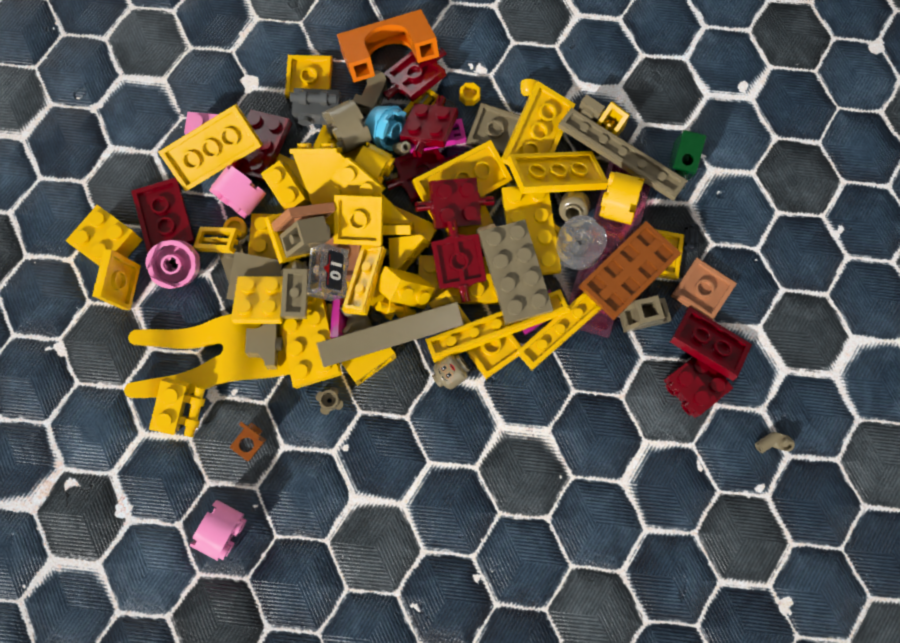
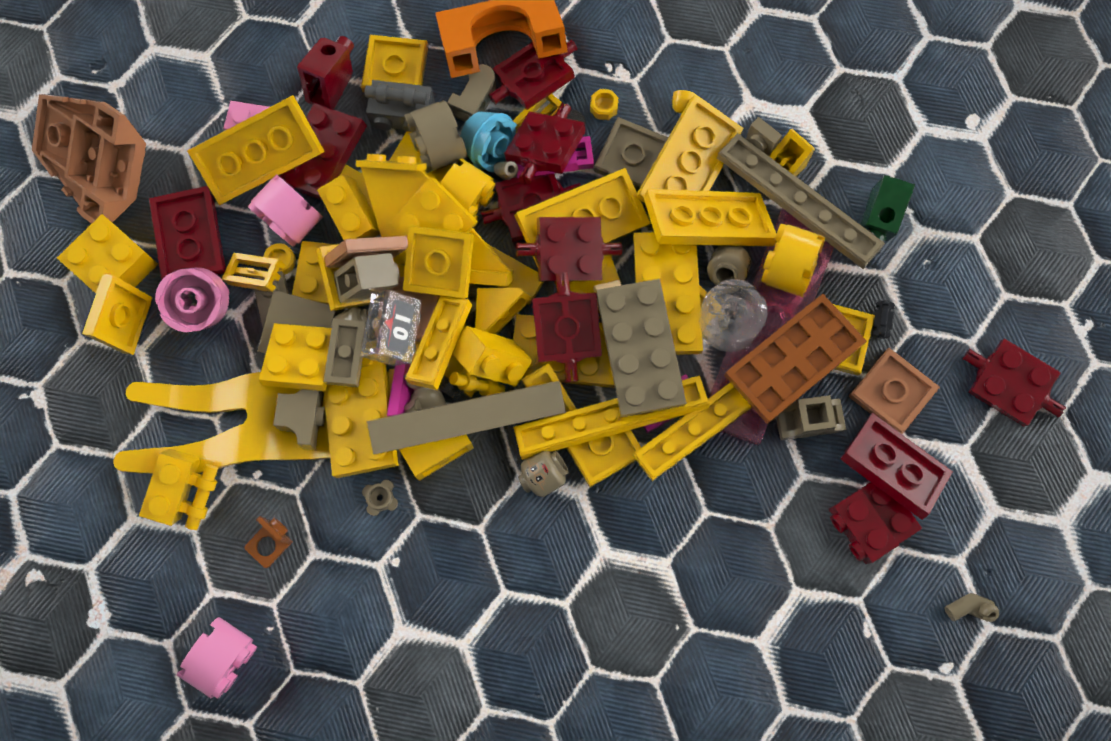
camera: 10 degrees right, 0 degrees up
(82, 158) = (90, 152): none -> nougat wedge
(258, 84) = (326, 71): none -> dark red torso
(790, 275) = (1014, 382): none -> dark red plate

